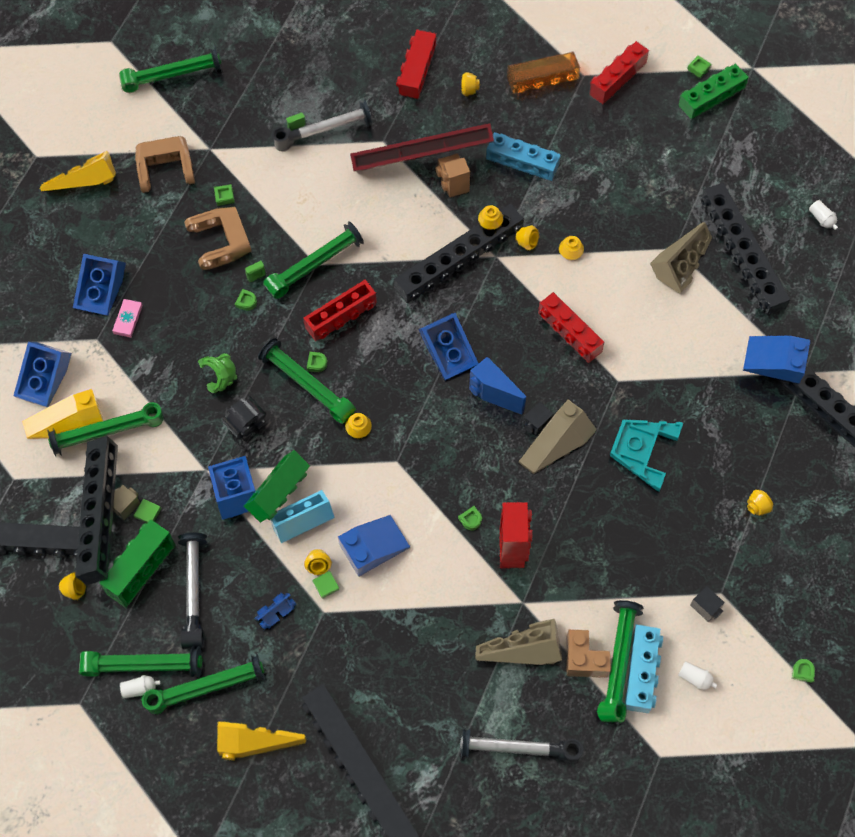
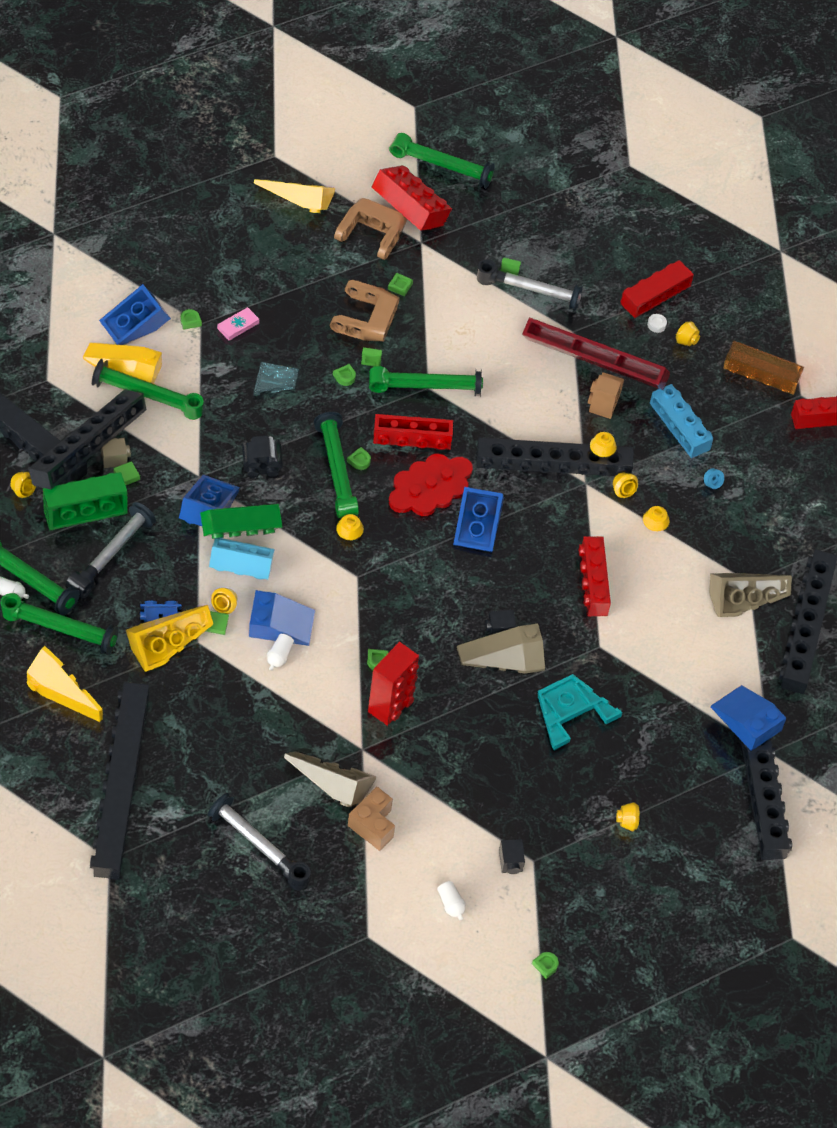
camera: 30 degrees right, 10 degrees down
(86, 341) = (190, 319): none -> bright green tile
(98, 284) = (237, 282): blue slope -> none
(175, 117) = (411, 197): none -> red brick
(195, 342) = (275, 378): none -> clear light blue wing
(224, 370) = (277, 410): bright green helmet -> none
(296, 632) = (162, 638): none -> yellow wedge
(387, 343) = (430, 484): none -> red plate
(395, 572) = (278, 654): none -> white piece
(437, 91) = (657, 323): none -> white tile
(495, 387) = (485, 572): blue slope -> none
(584, 185) = (714, 478): none -> dark azure tile
(613, 708) = (439, 812): green piece -> none
(642, 669) = (412, 862): medium azure brick -> none

